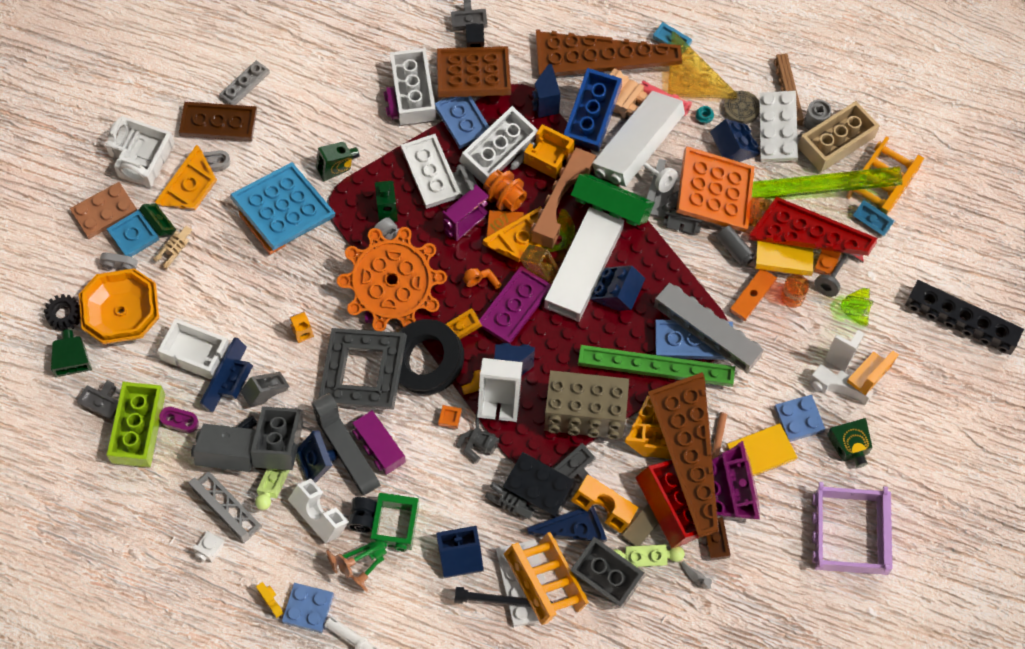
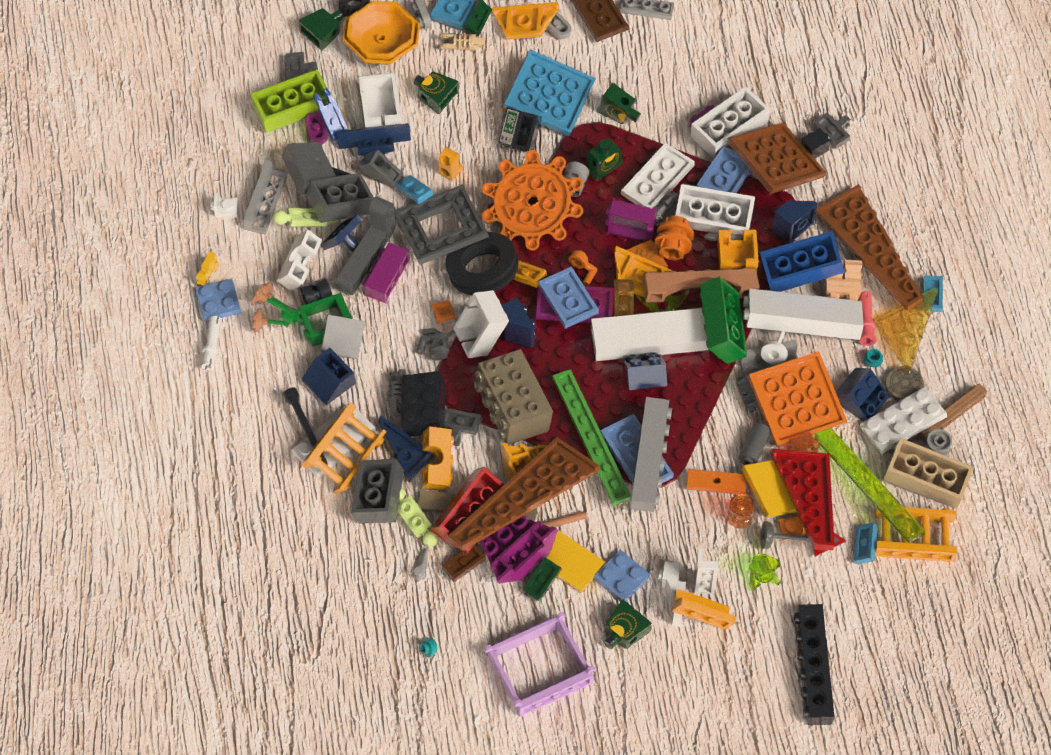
camera: 60 degrees right, 5 degrees down
(179, 397) = (330, 114): none -> hinge
(211, 296) = (436, 90): none -> dark green torso
(306, 250) = (520, 129): none -> black slope
(306, 371) = (414, 189): none -> dark azure plate
(426, 516) = (343, 336): none -> light grey tile
(511, 305) = (568, 297): none -> medium blue plate
(771, 482) = (542, 579): none -> dark green plate
(785, 613) = (428, 647): none -> teal plate

